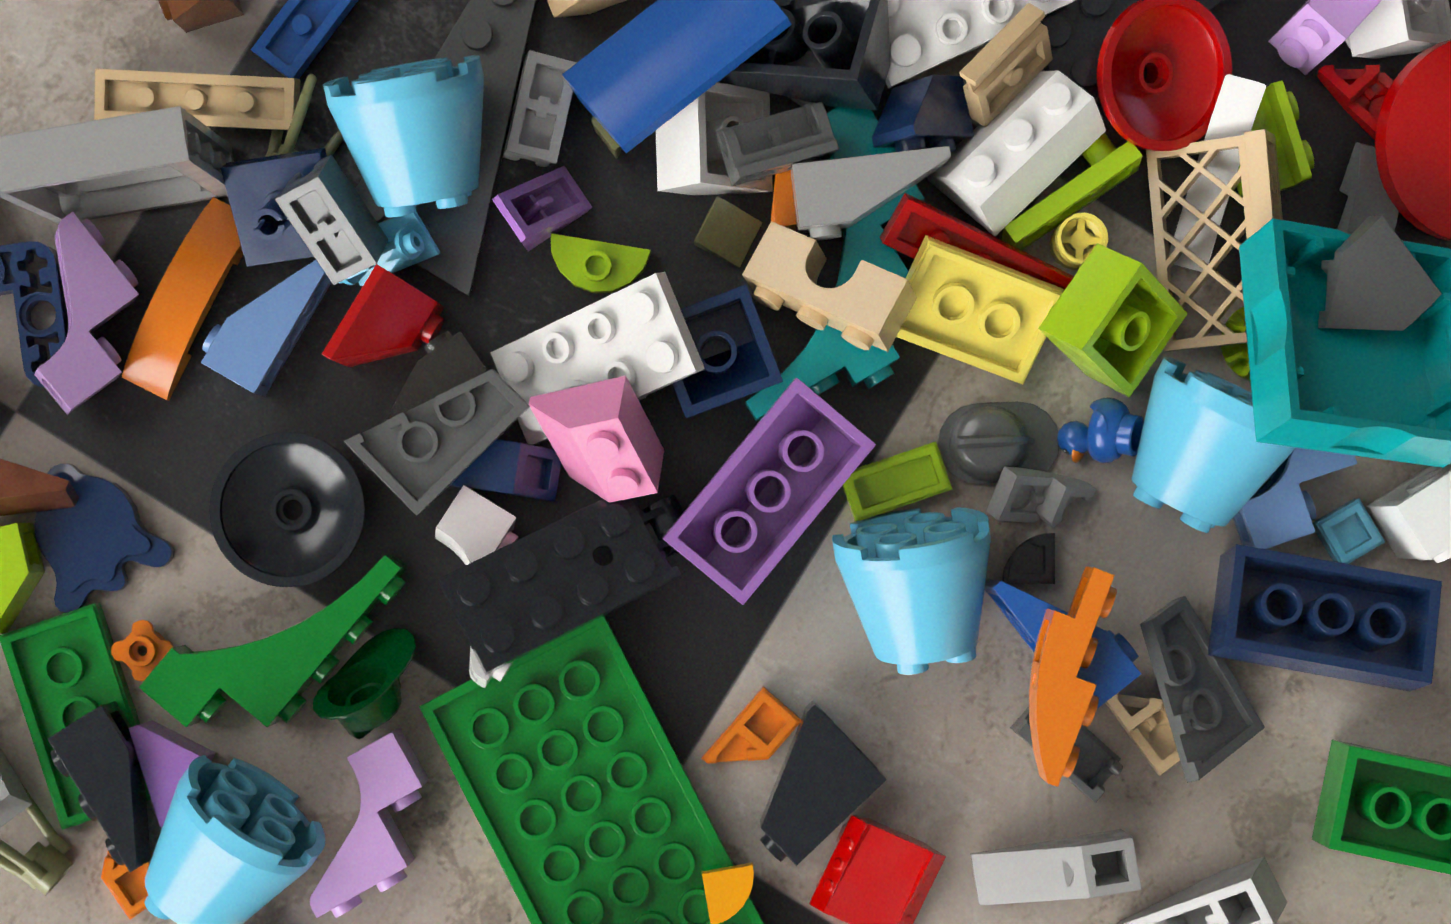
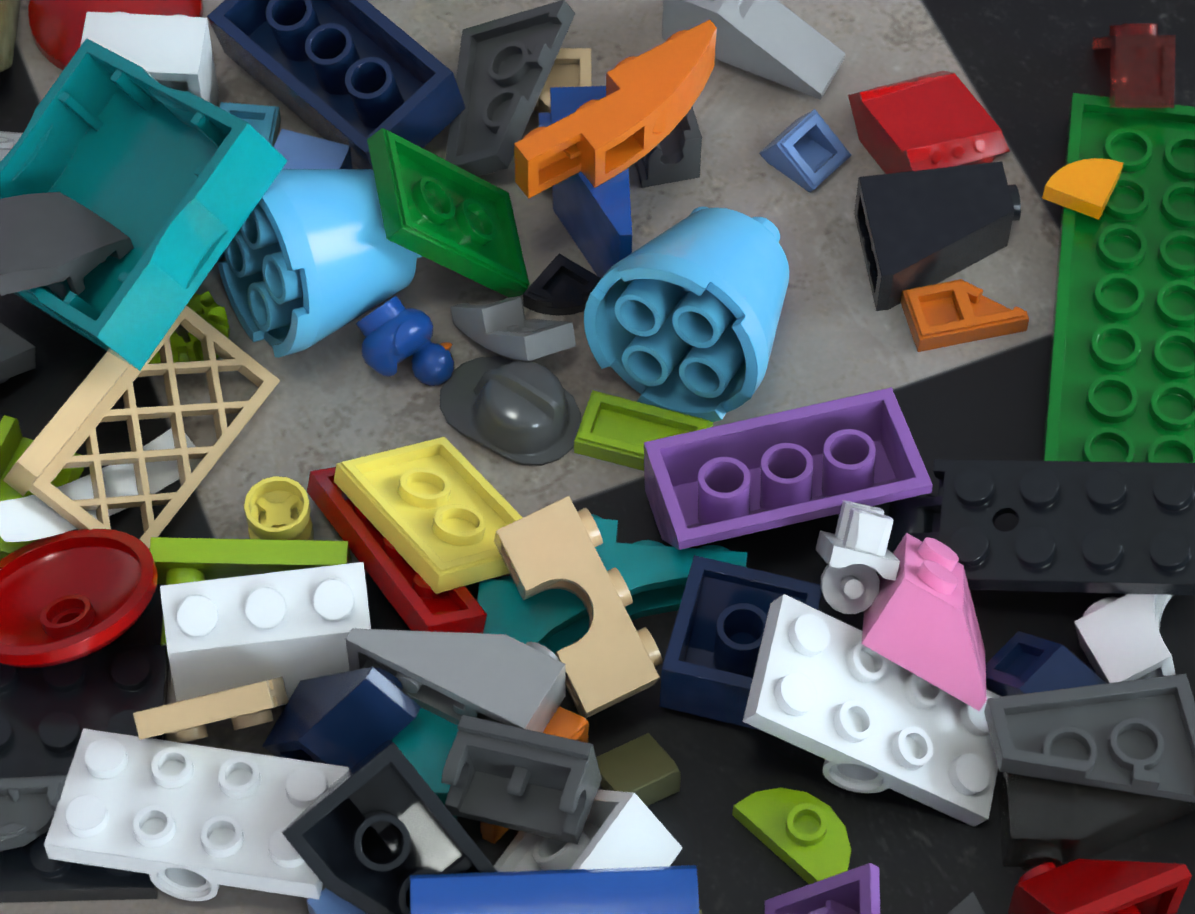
camera: 145 degrees left, 30 degrees down
(675, 448) = (855, 556): none -> white hips
(950, 799) = (806, 151): none -> medium blue slope
(1113, 319) = (314, 412): lime brick -> none
(1143, 533) = (447, 214): none -> green tile

